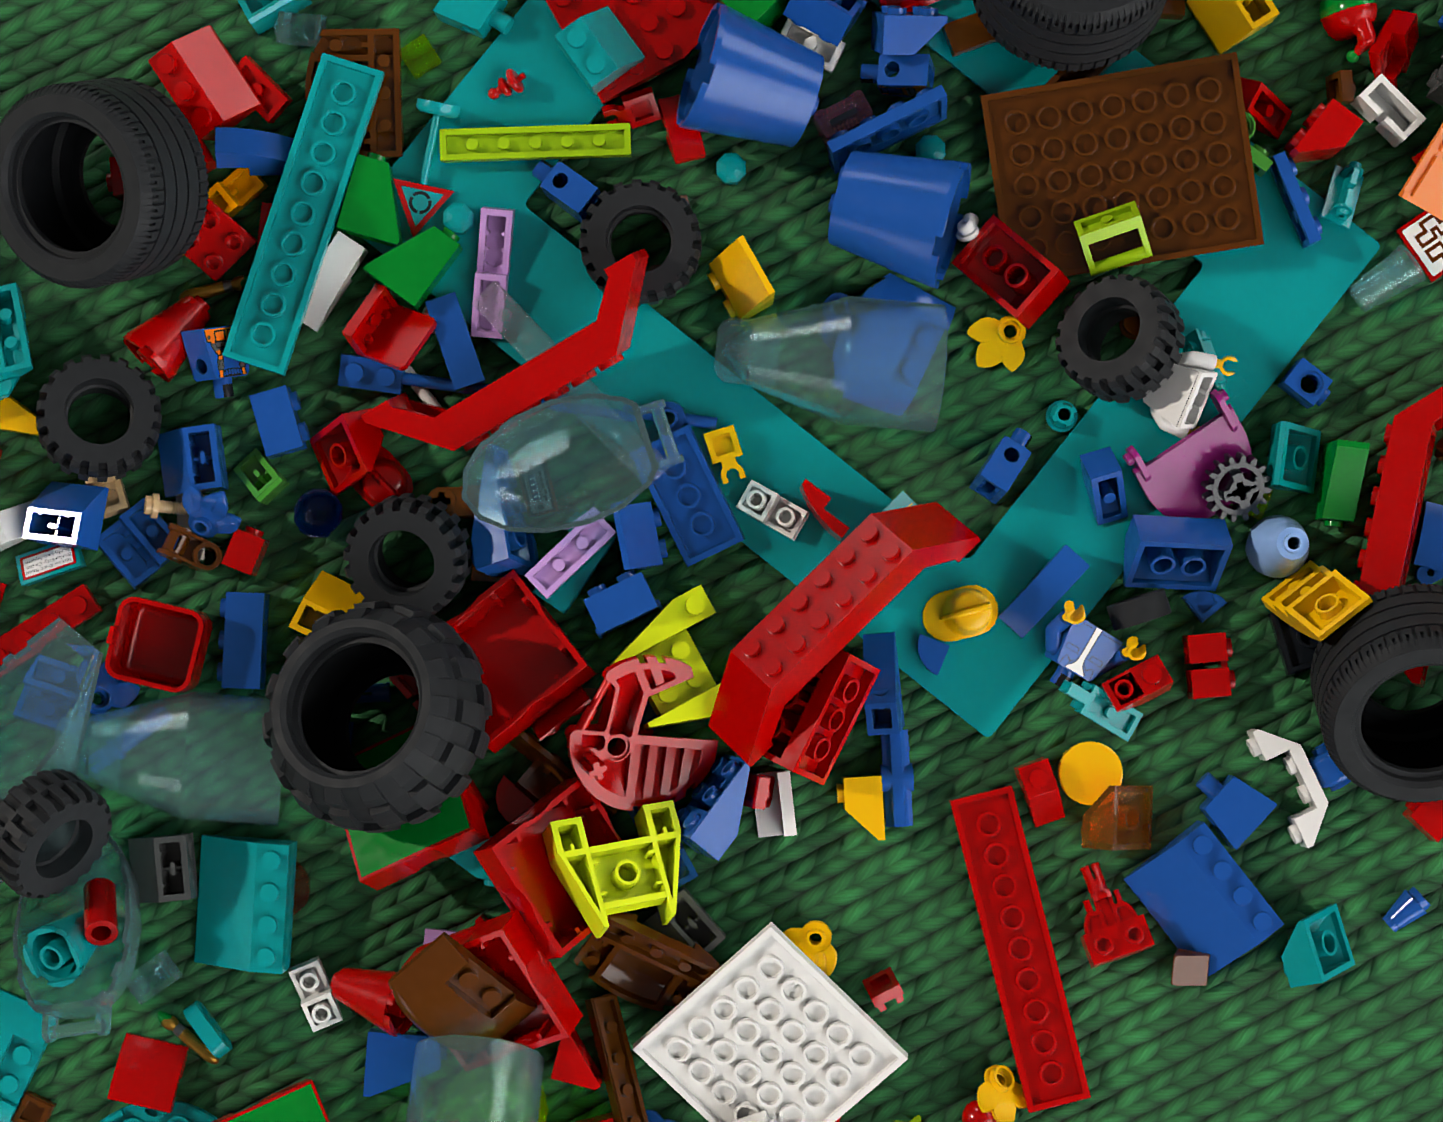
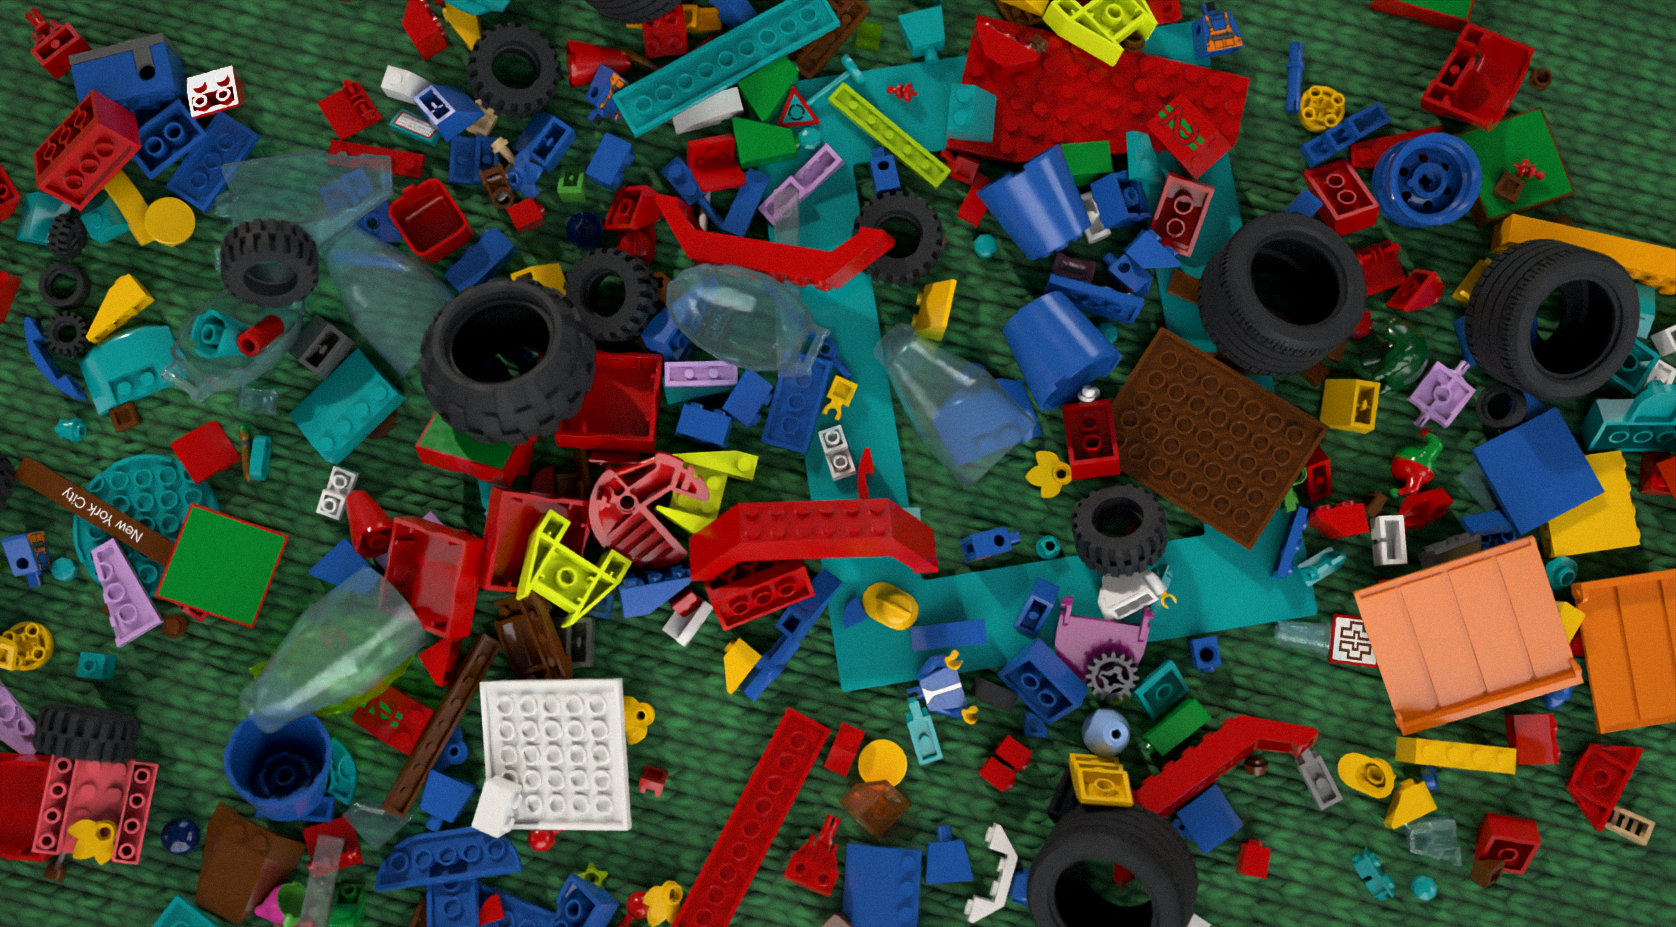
camera: 40 degrees right, 5 degrees down
(457, 994) = (410, 559): reddish brown slope -> none
(1109, 224) = (1170, 460): lime tile -> none
(1138, 684) = (954, 737): red slope -> none

